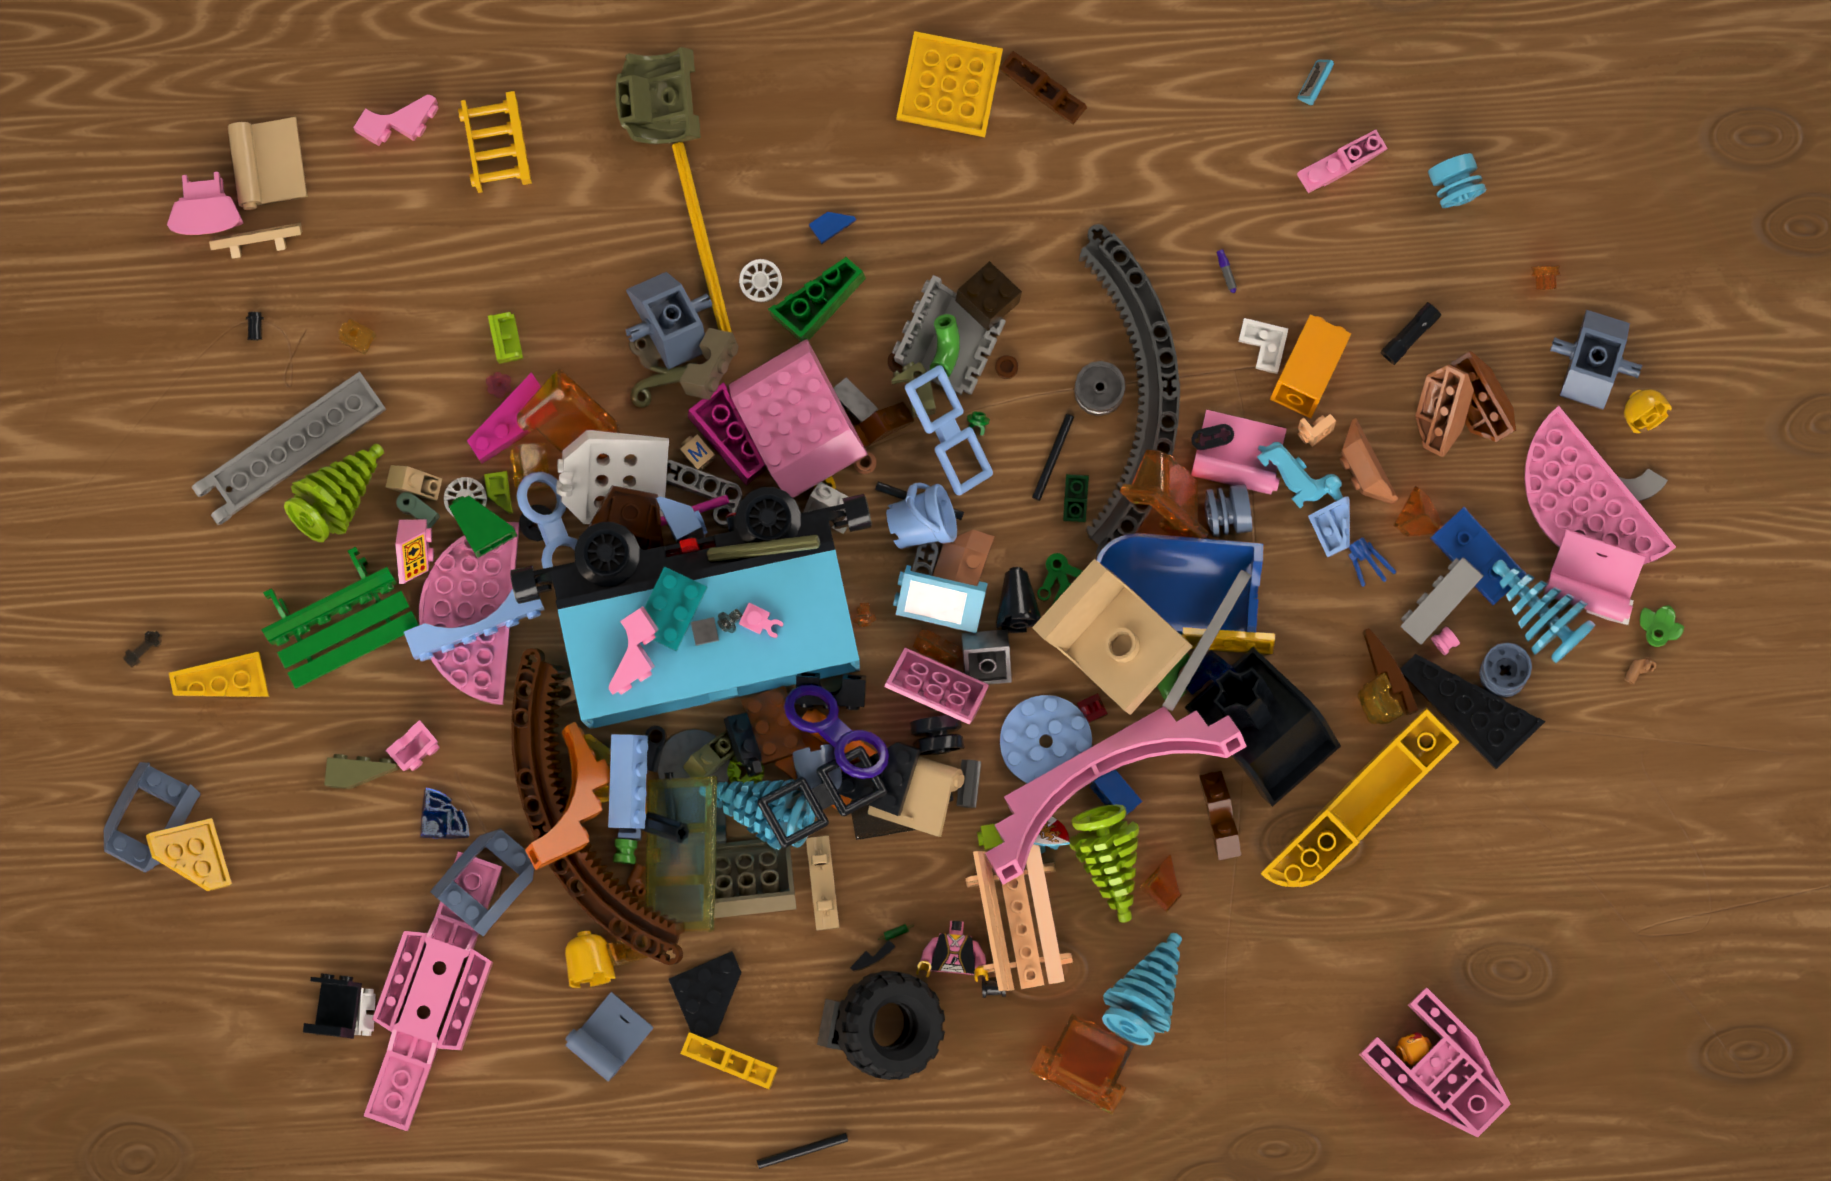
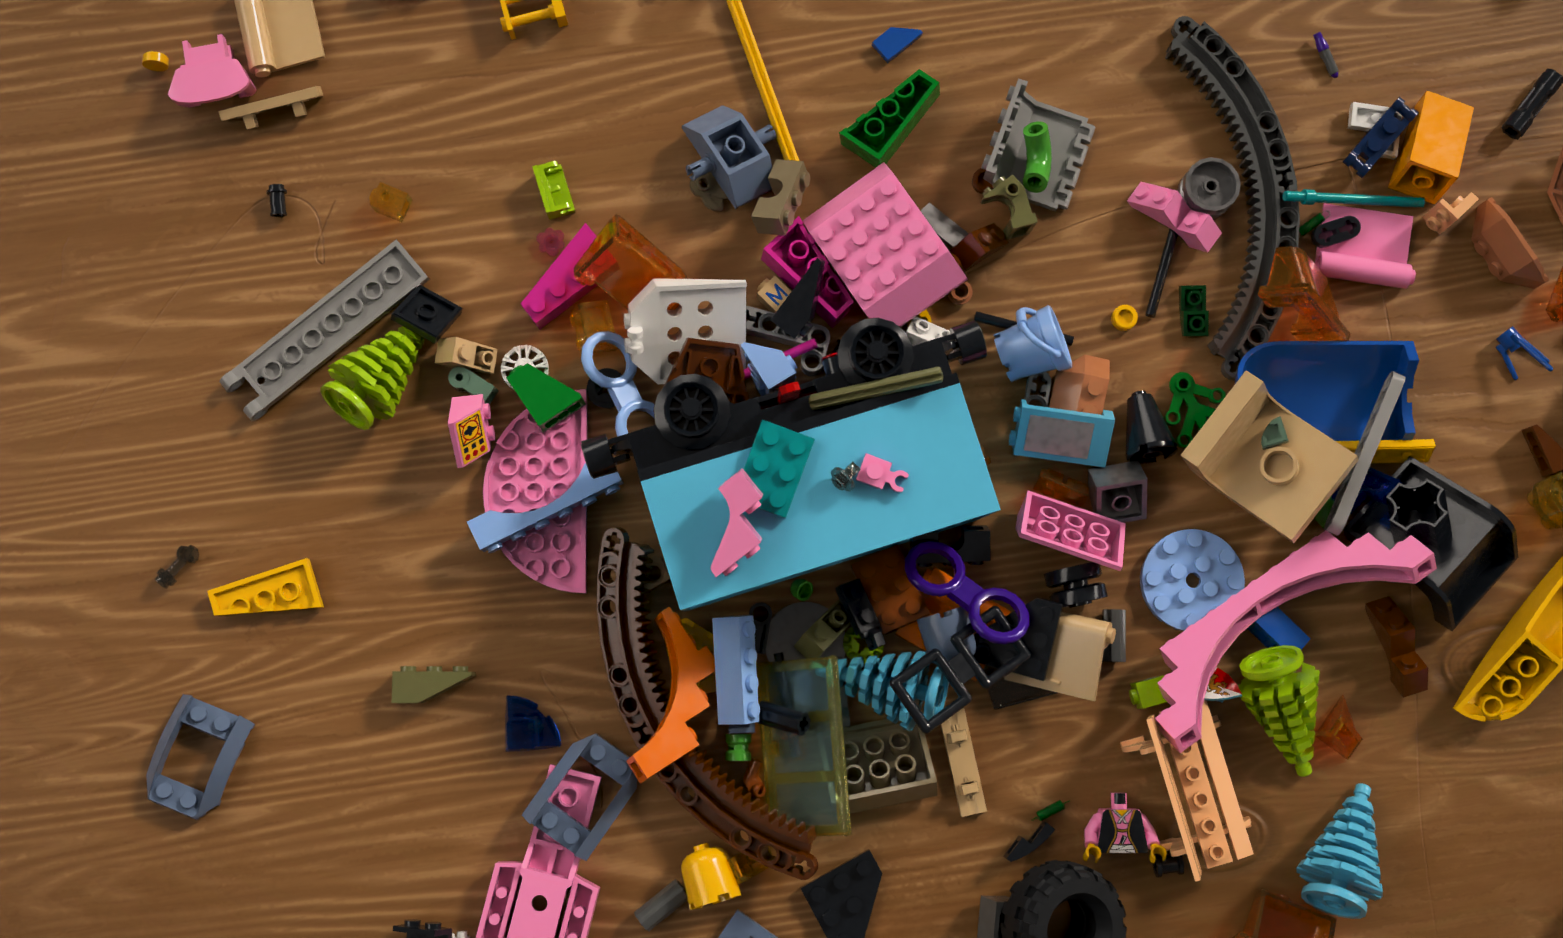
camera: 10 degrees left, 0 degrees up
(153, 188) = (155, 61): none -> yellow tile
(192, 852) = (246, 794): yellow plate -> none
(341, 603) = (392, 495): green piece -> none
(381, 441) = (426, 313): none -> black tile
(413, 747) = (489, 650): bright pink cylinder -> none
(498, 490) = (561, 356): lime tile -> none
(545, 982) = (661, 905): none -> dark grey axle
(663, 378) = (731, 218): olive plant -> none
(695, 718) = (801, 589): none -> bright green hinge
(704, 631) = (817, 491): flat silver tile -> none
(716, 465) = (800, 306): none -> black slope
(760, 280) = (826, 106): white wheel -> none
(948, 430) = (1051, 246): light blue bar -> none
(978, 419) = (1078, 234): green plate -> none
(988, 296) = (1076, 100): dark brown brick -> none
(1006, 367) = (1101, 176): reddish brown tile -> none
(1012, 498) = (1124, 317): none -> yellow tile
(1067, 409) = (1171, 210): none -> bright pink arch
(1092, 708) = (1239, 538): dark red tile -> none
(1122, 617) = (1274, 434): none -> sand green tile
(1189, 404) = (1309, 197): none -> teal bar
(1192, 428) = (1312, 223): none -> green piece
(1228, 510) = (1368, 308): sand blue wheel -> none
(1262, 354) = (1380, 137): none -> dark blue plate
(1296, 478) = (1433, 267): medium azure animal -> none
(1333, 526) = (1479, 316): light blue wing -> none

